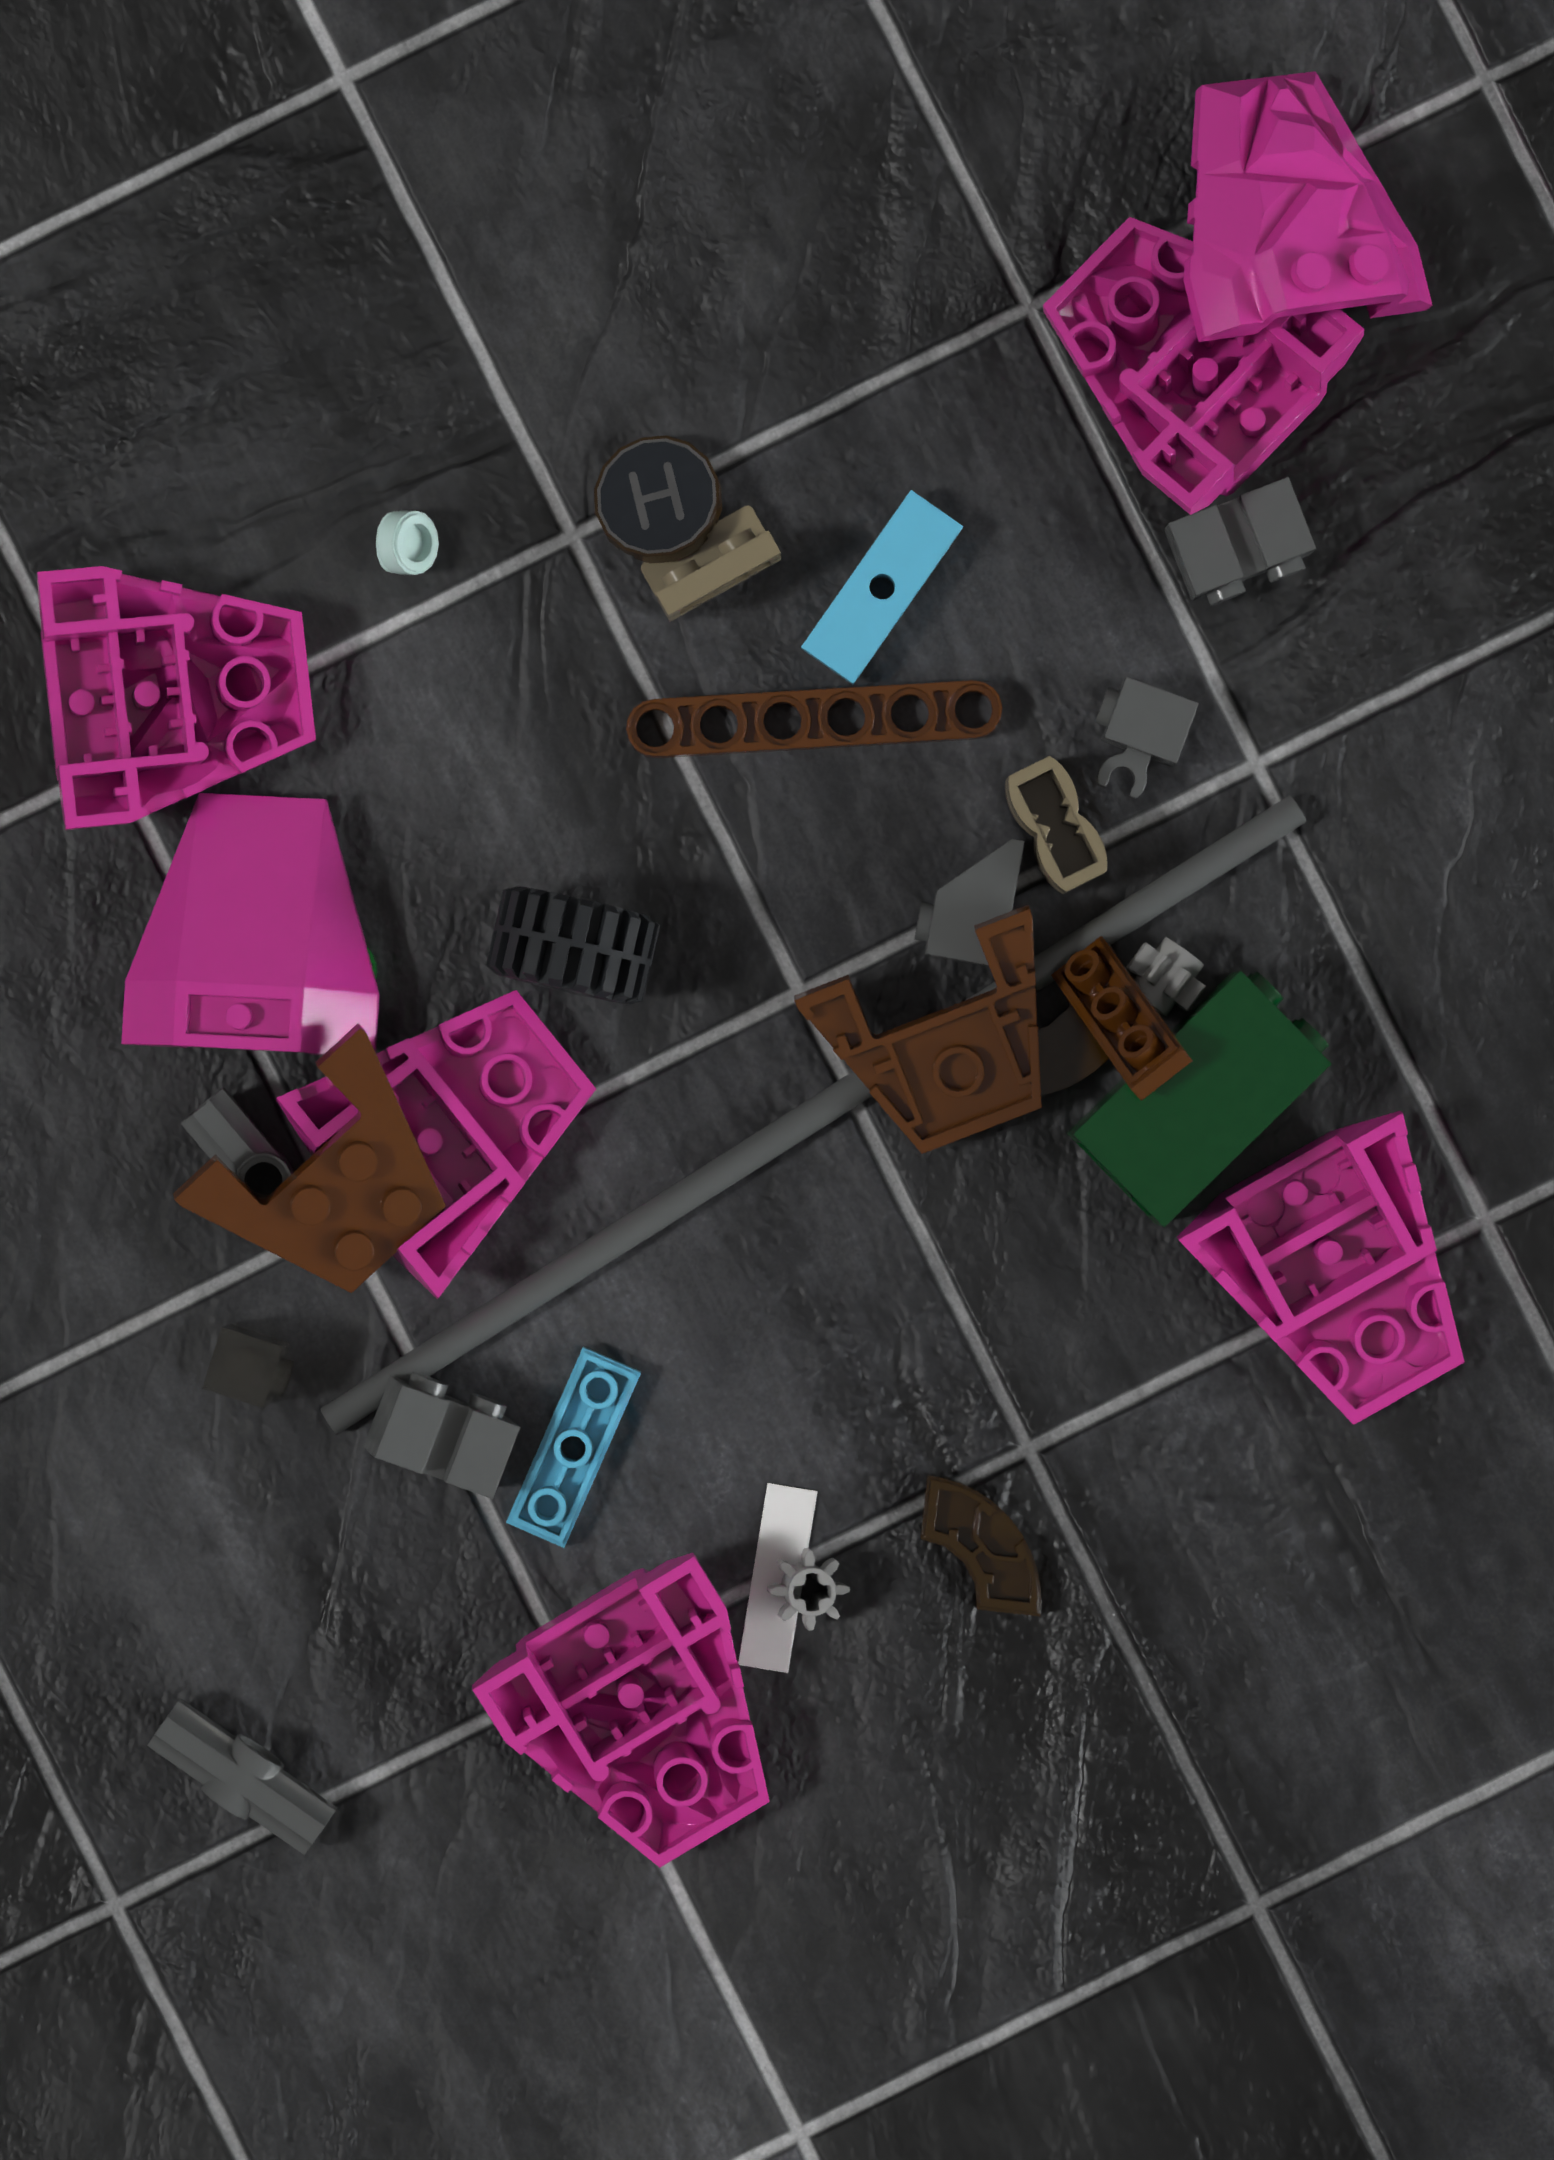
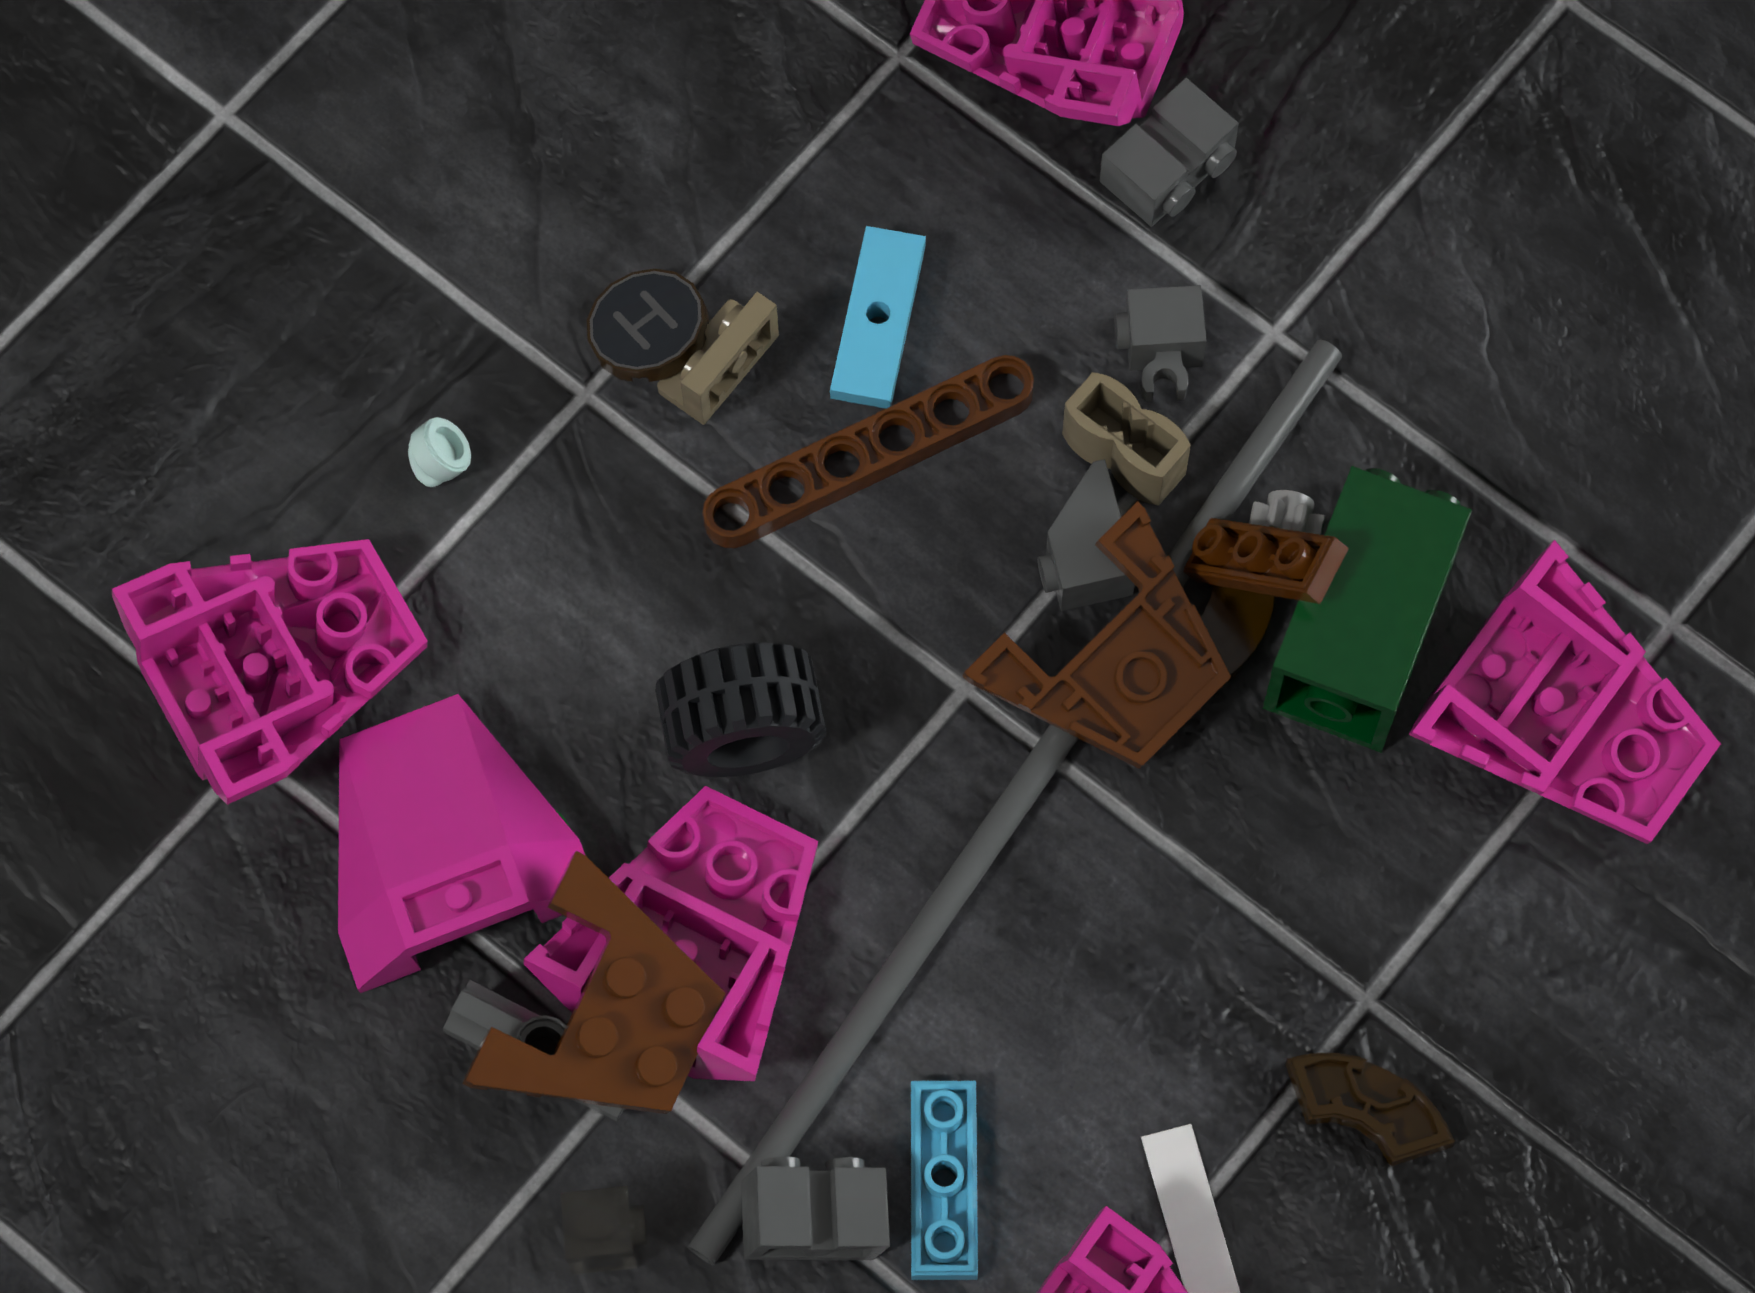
camera: 15 degrees left, 20 degrees down
(821, 1601) = (1224, 1225): light grey gear -> none

